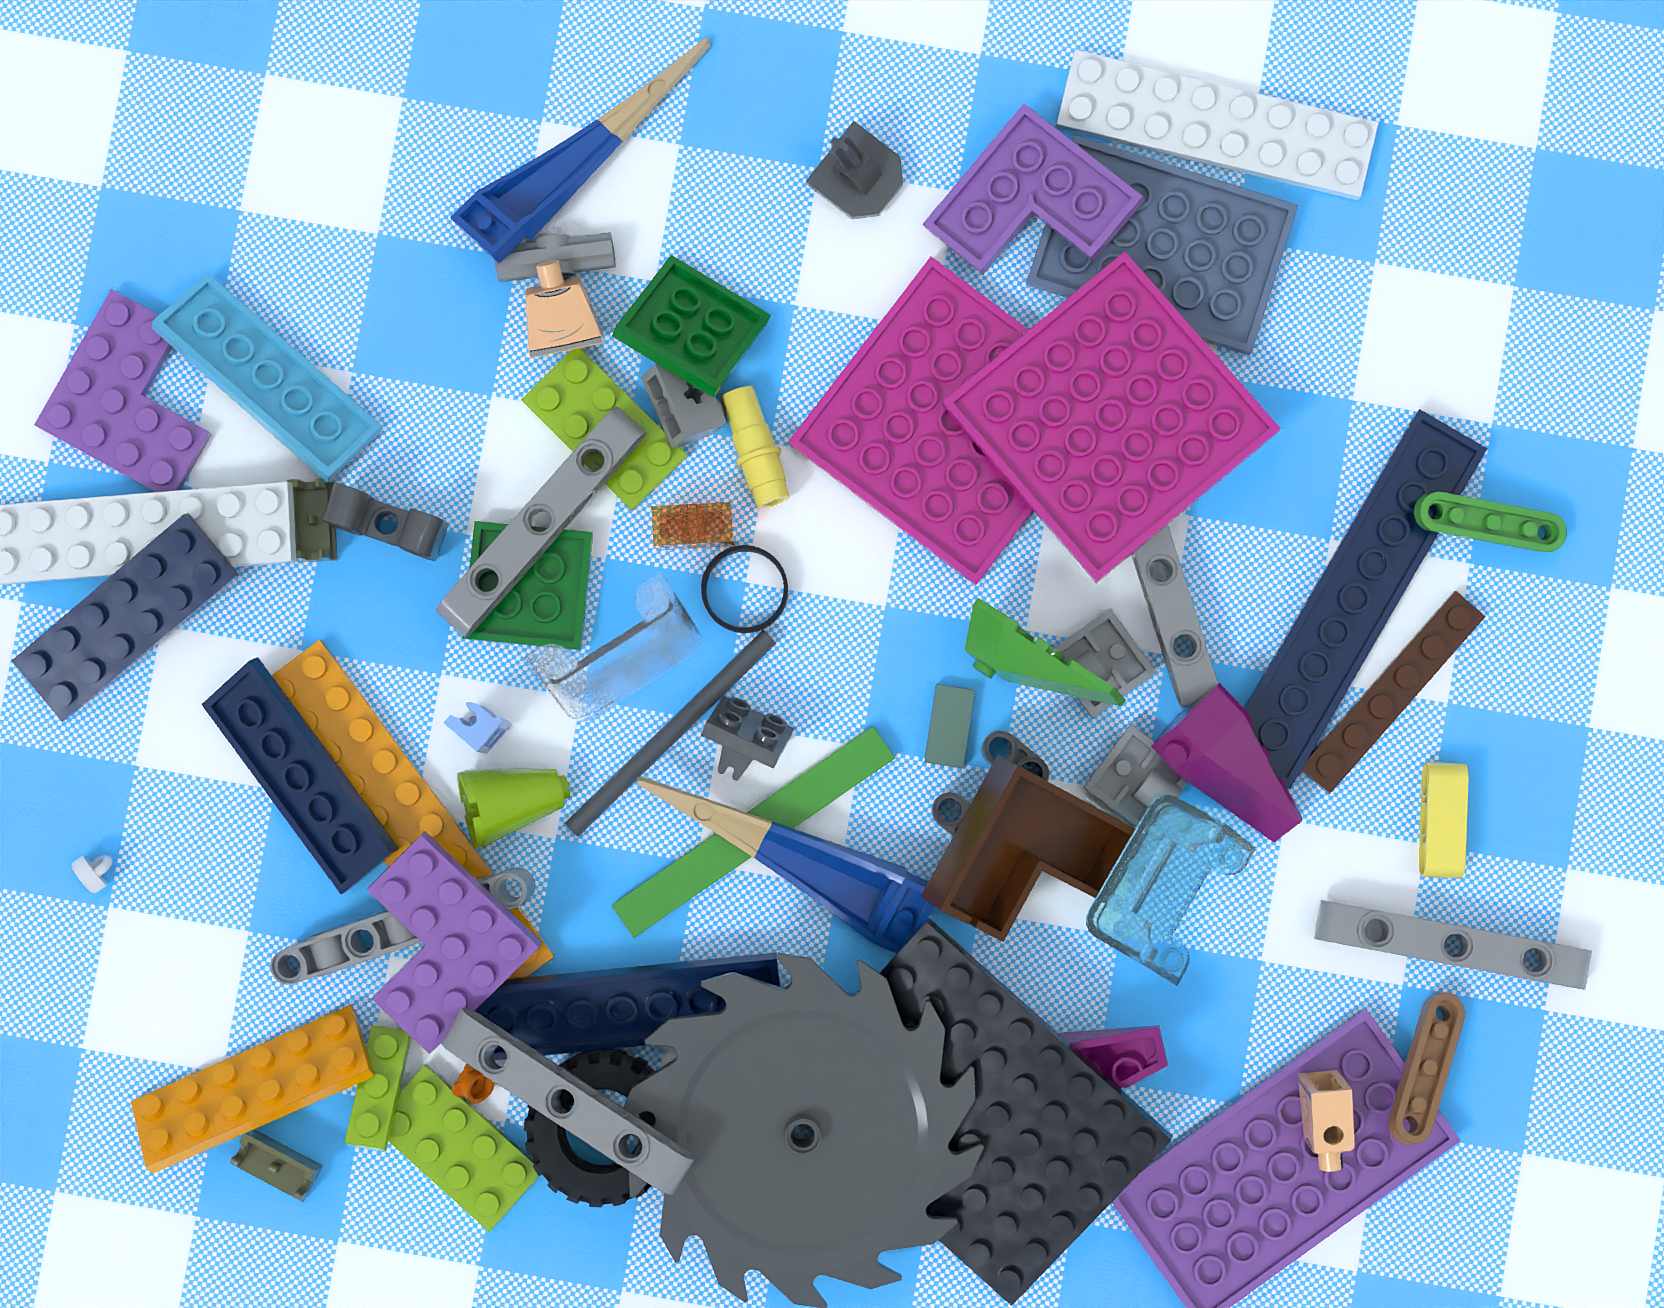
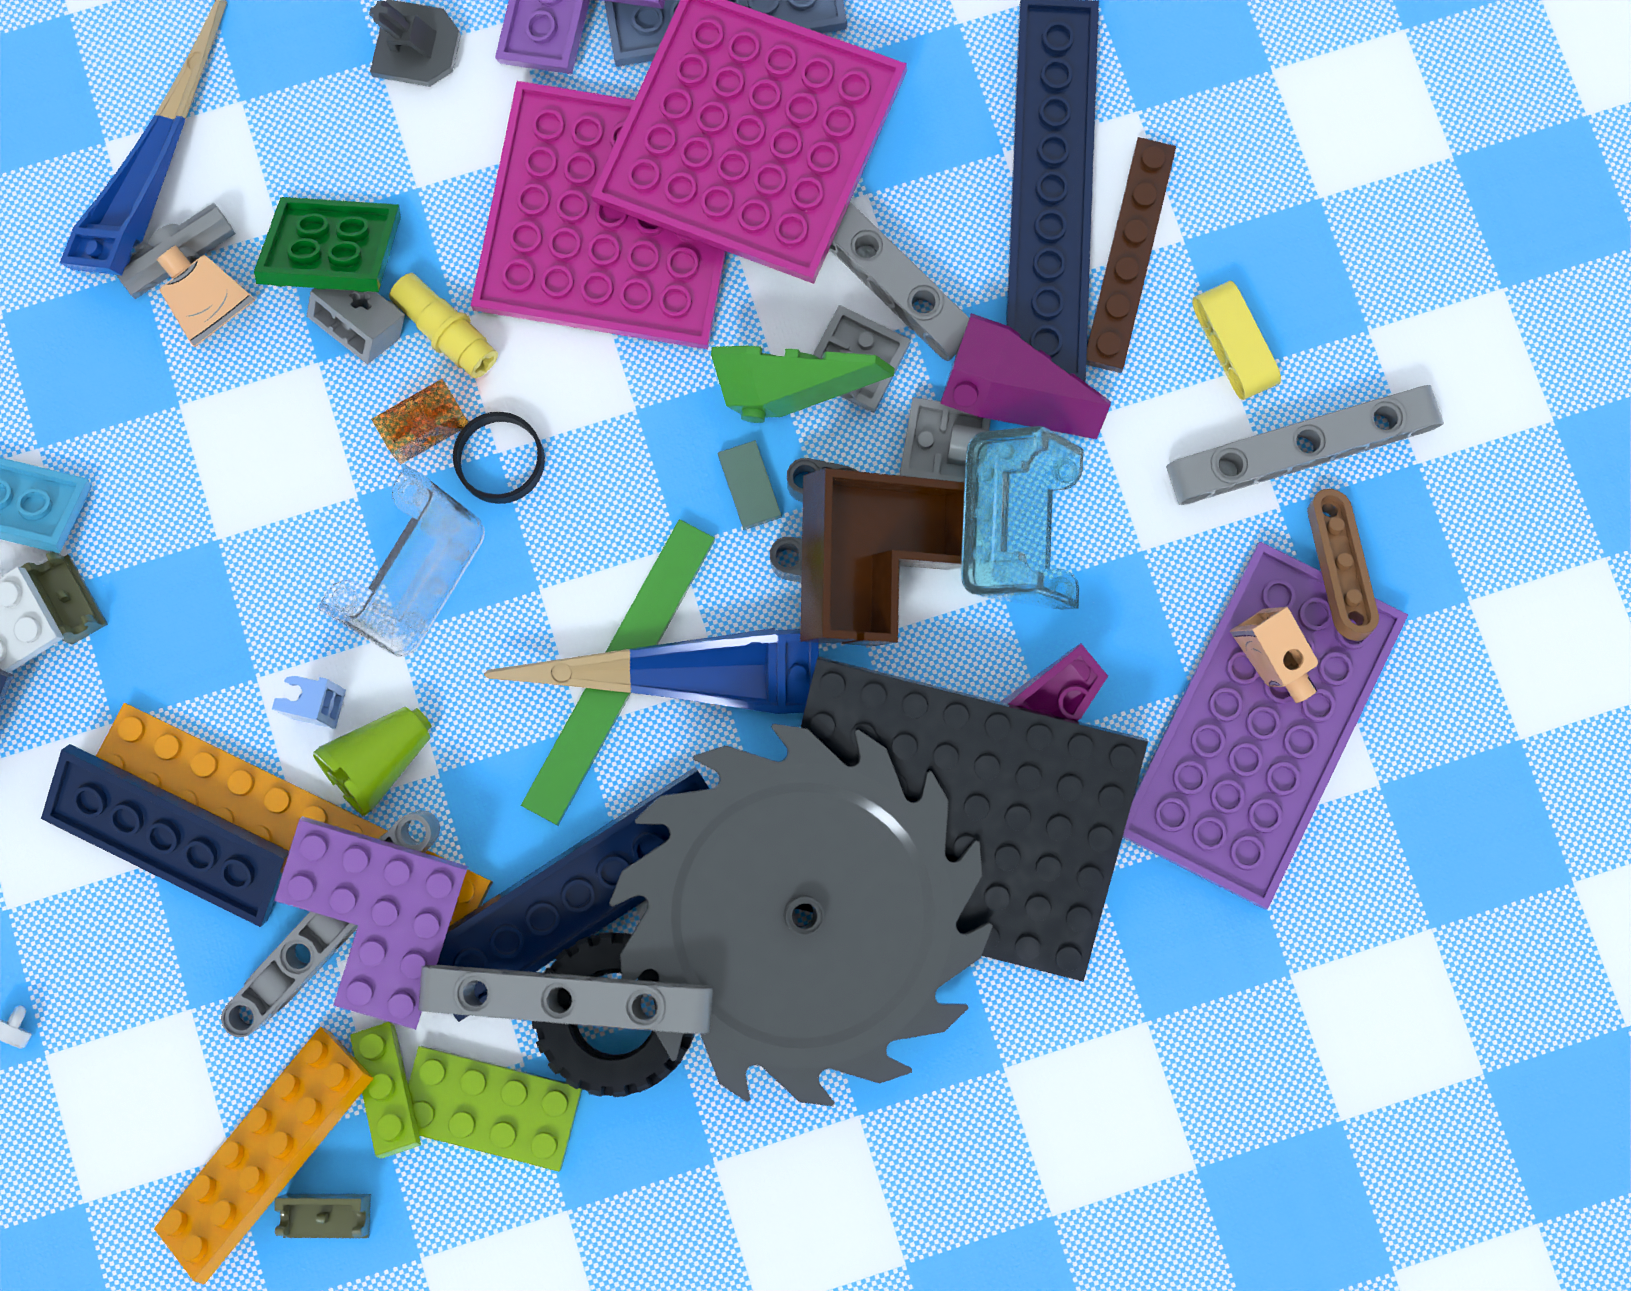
camera: 30 degrees left, 5 degrees down
(361, 515) = (103, 568): dark grey beam -> none
(473, 1085) = (483, 1039): orange plate -> none
(518, 544) = (267, 517): light grey beam -> none
(548, 599) = (293, 552): green plate -> none
(576, 398) = (297, 380): lime plate -> none
(670, 733) = (496, 622): dark grey piece -> none
(746, 735) = (565, 584): dark grey plate -> none
(1490, 521) = (1135, 60): bright green plate -> none

